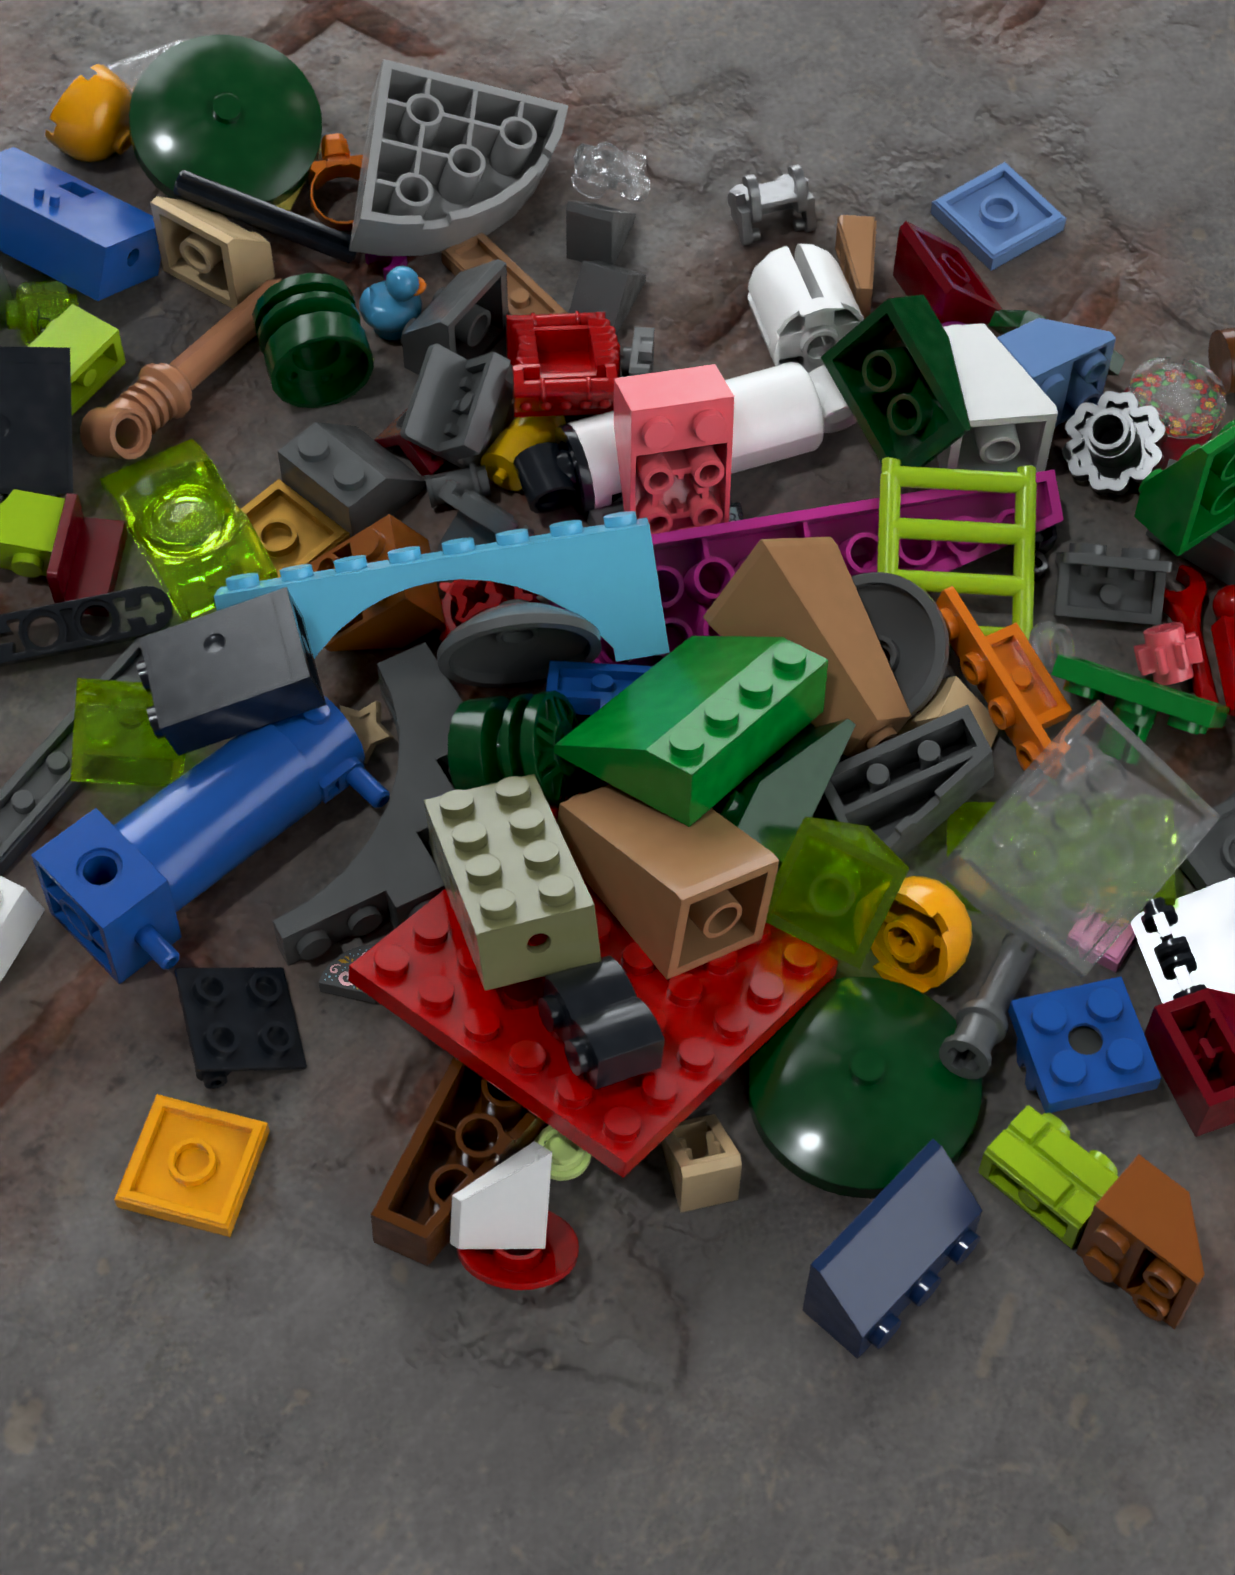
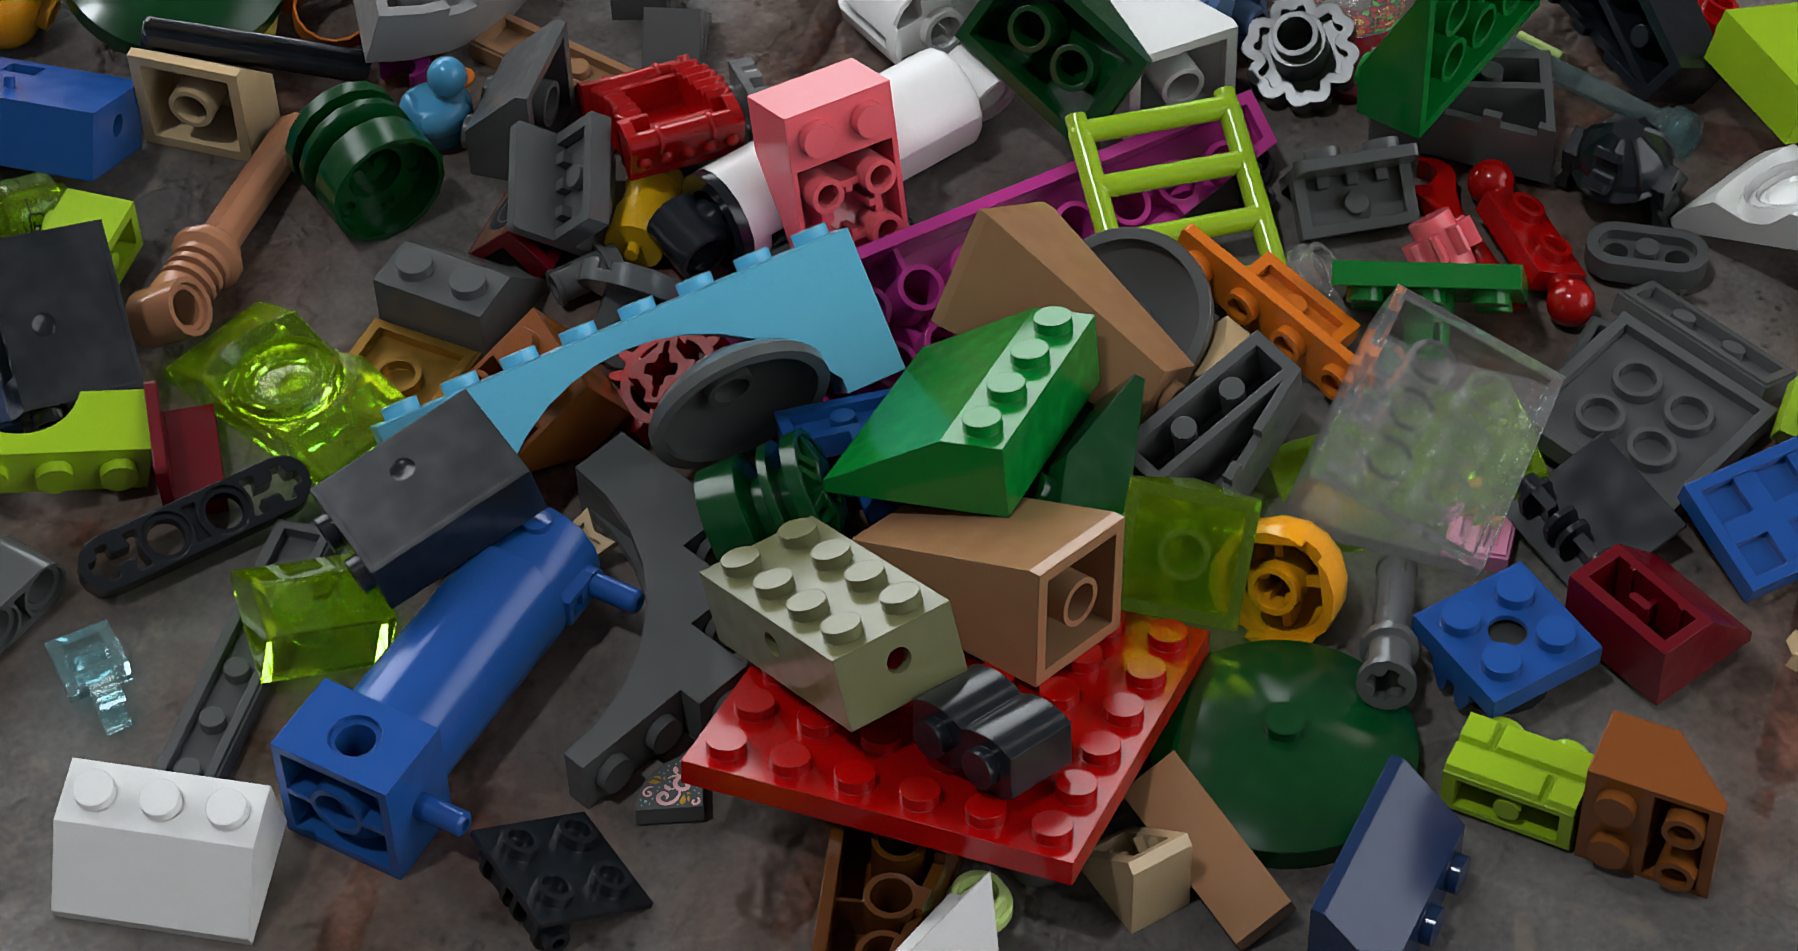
camera: 15 degrees left, 10 degrees down
(770, 1170) = (1222, 865): none -> medium nougat tile

